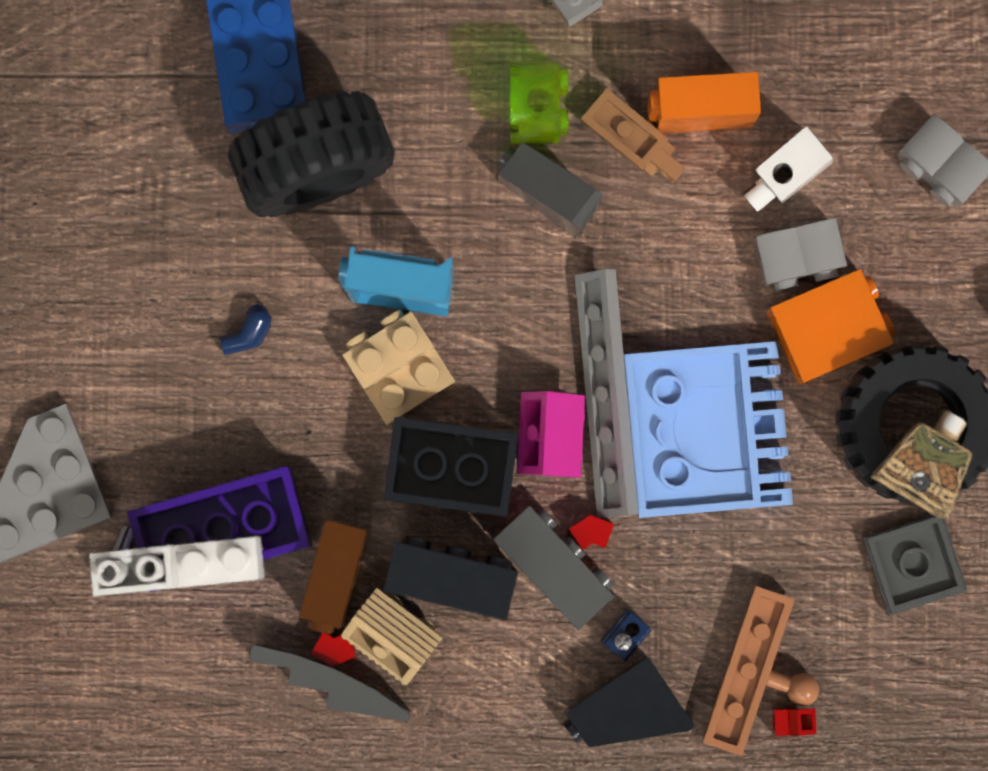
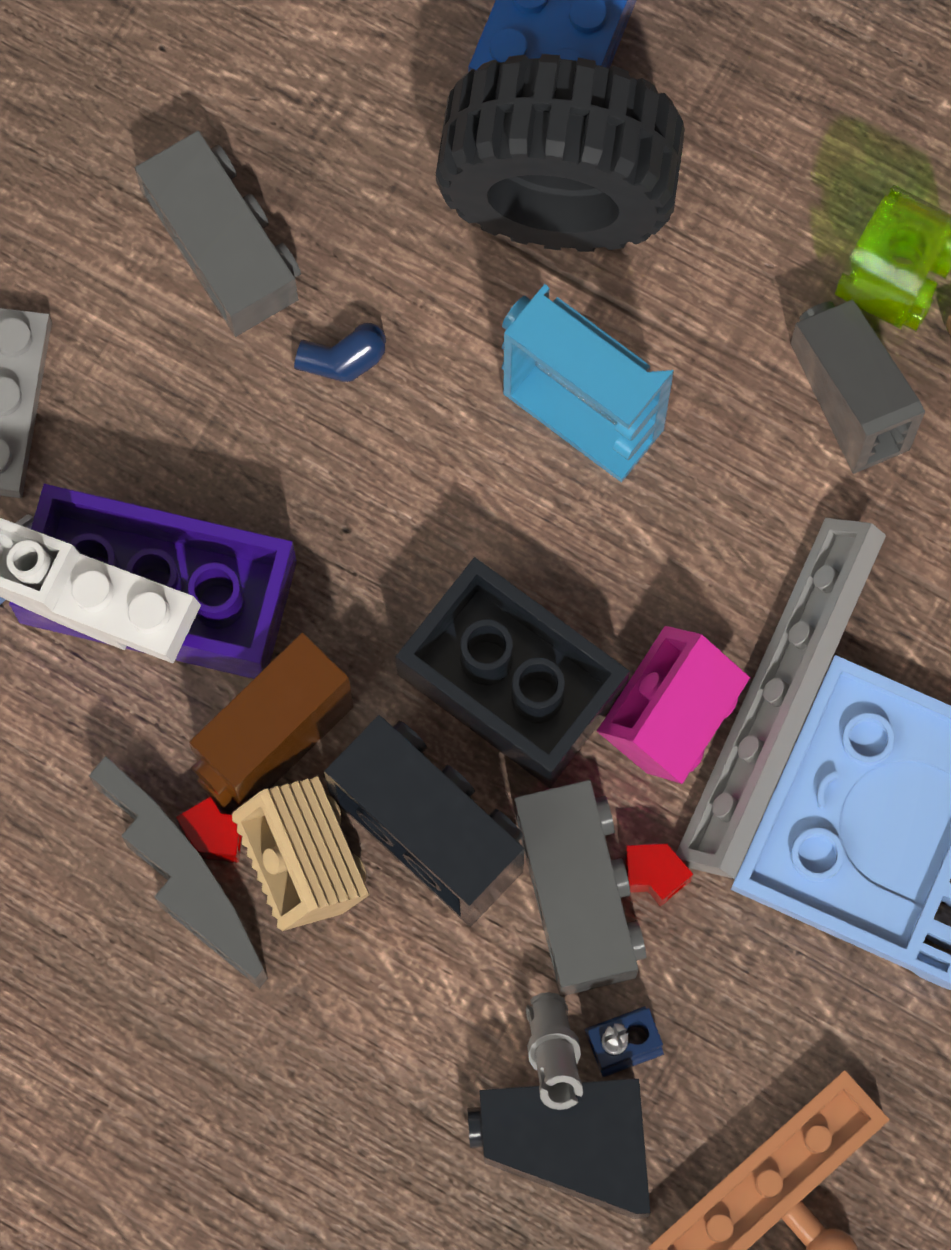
camera: 30 degrees right, 10 degrees down
(135, 299) = (219, 232): none -> dark grey brick
(397, 366) = (518, 504): tan plate -> none
(593, 667) = (554, 1051): none -> light grey pin

